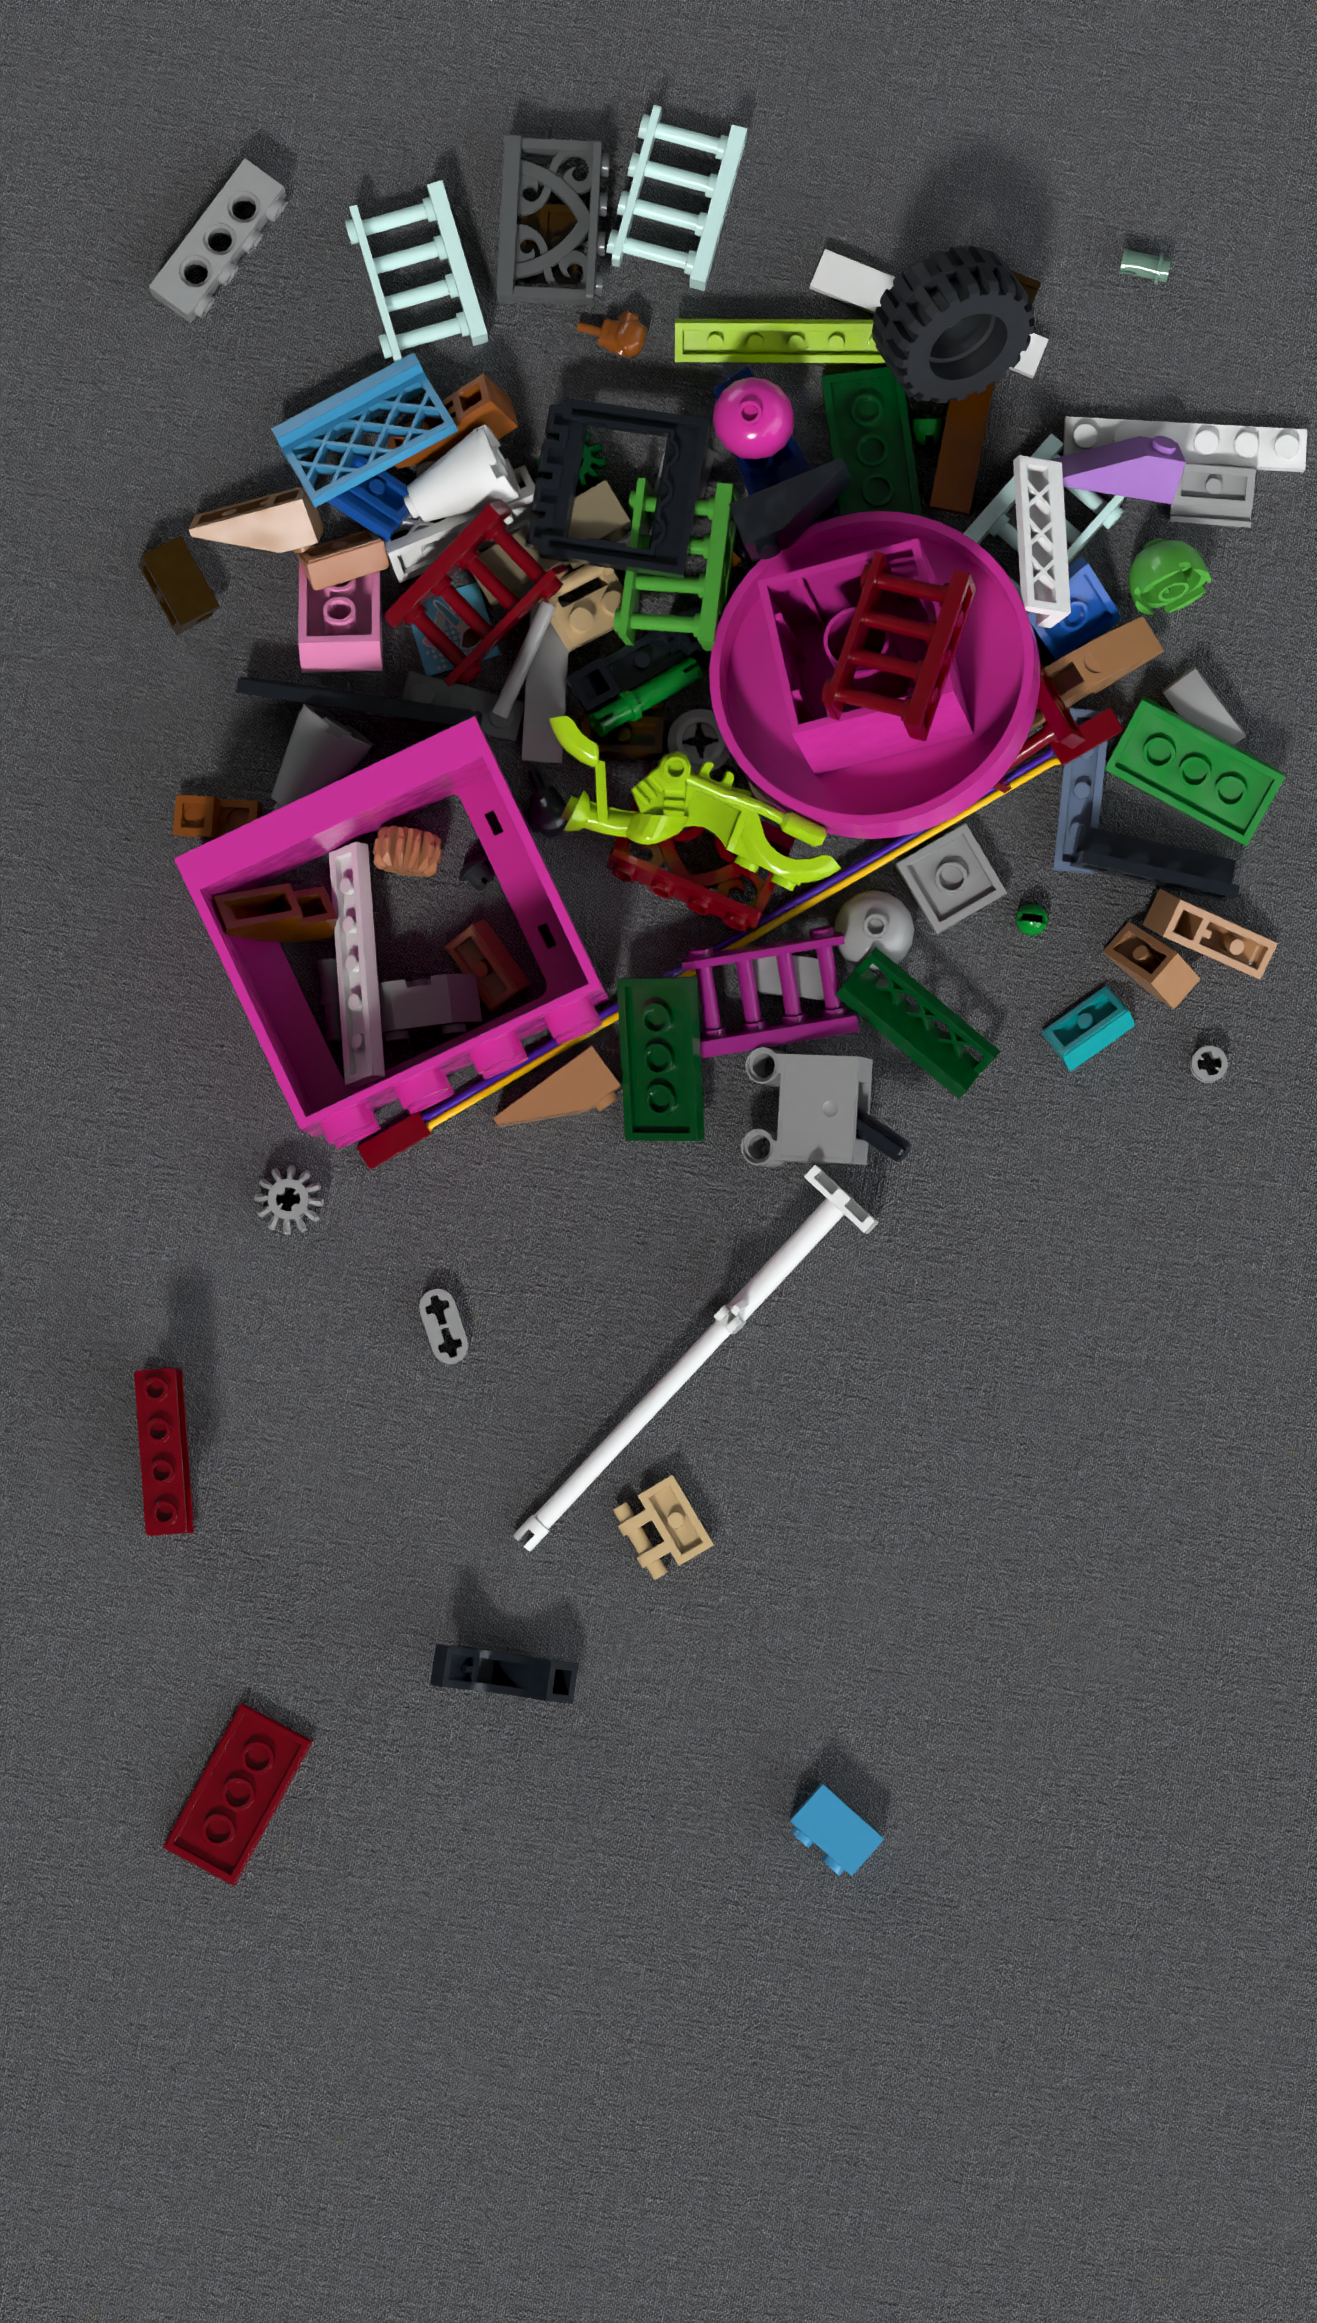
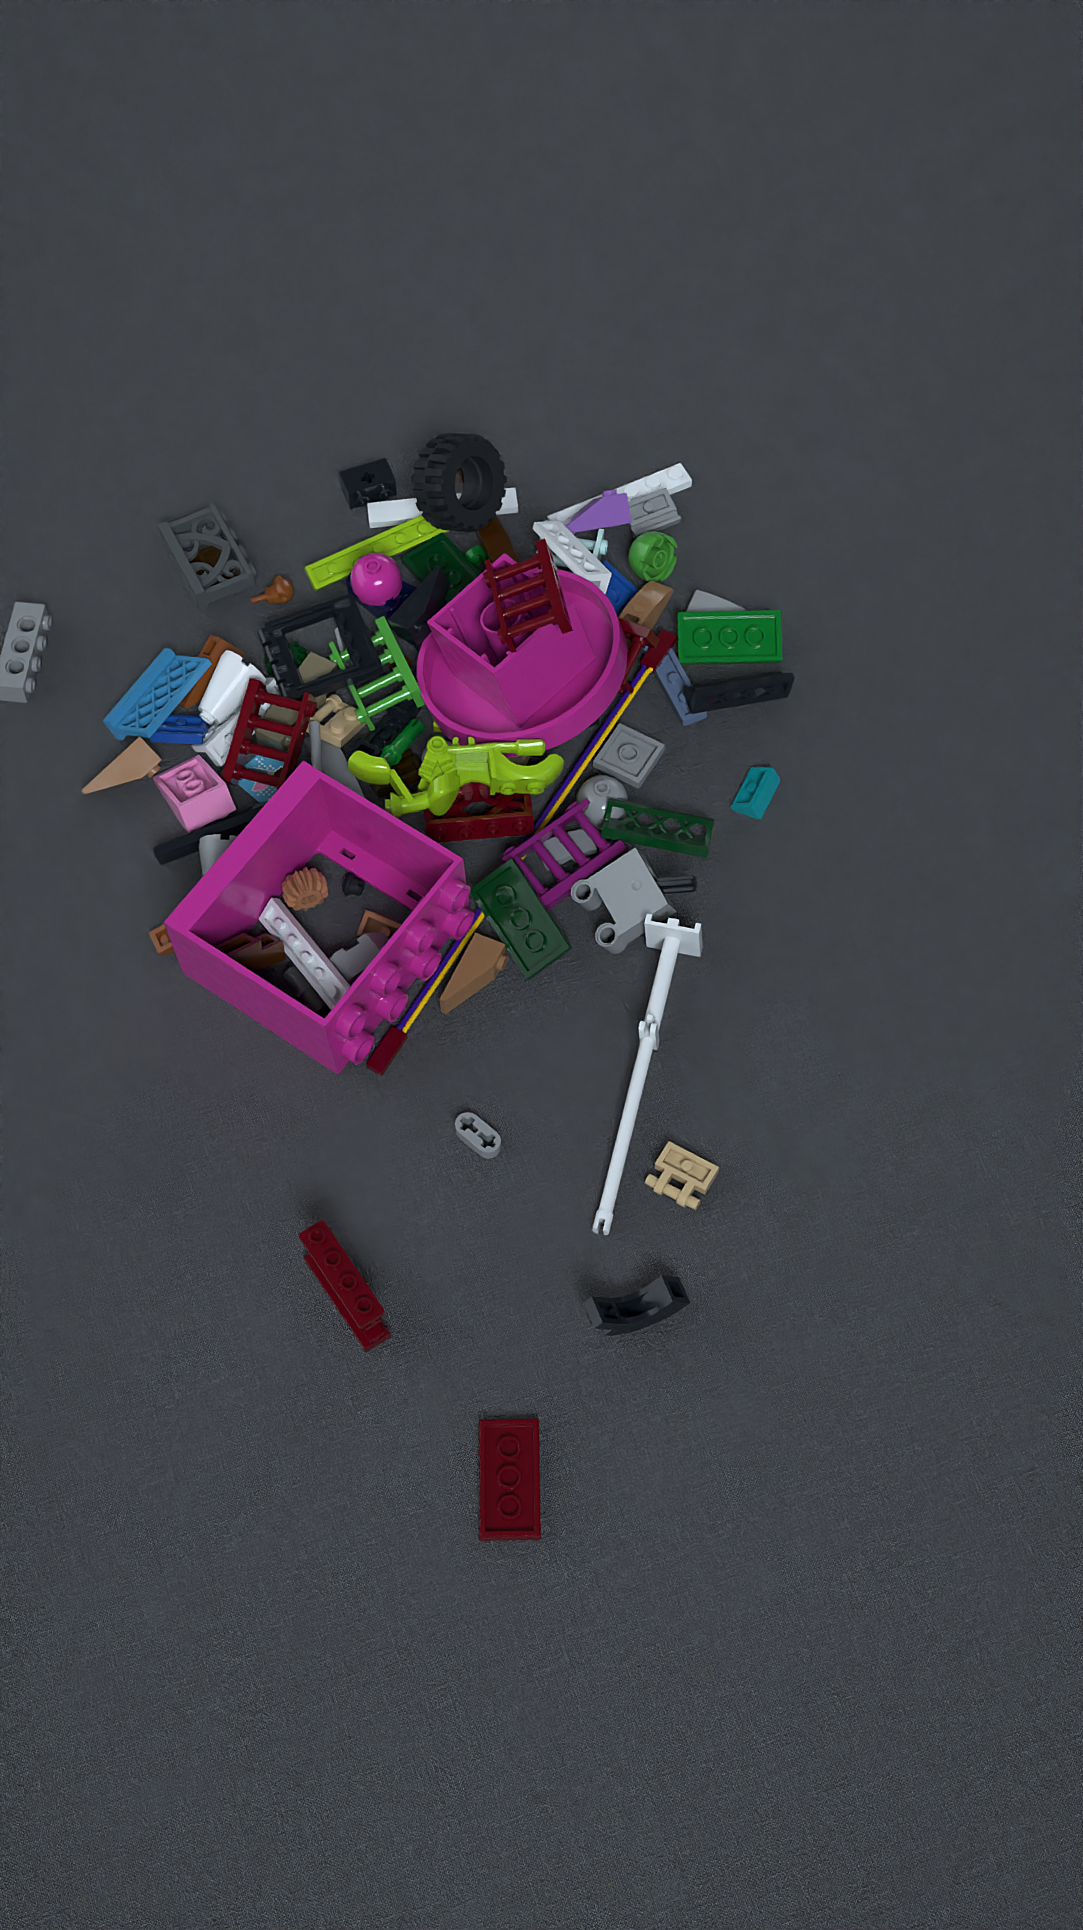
camera: 25 degrees left, 25 degrees down
(178, 585) = (90, 826): dark brown hinge -> none
(280, 1189) = (339, 1101): light grey gear -> none
(344, 559) = (182, 766): nougat slope -> none
(444, 246) = (156, 595): light aqua fence -> none
(705, 225) = (290, 502): light aqua fence -> none
(835, 1830) = (899, 1291): dark azure brick -> none
(864, 215) = (368, 483): none -> black brick
(1031, 928) = (689, 757): green hinge -> none
(1145, 265) = (545, 433): sand green pin -> none
(1152, 965) = (770, 740): medium nougat slope -> none
(1209, 934) = (789, 709): medium nougat slope -> none
(1215, 1053) = (835, 782): light grey bush -> none

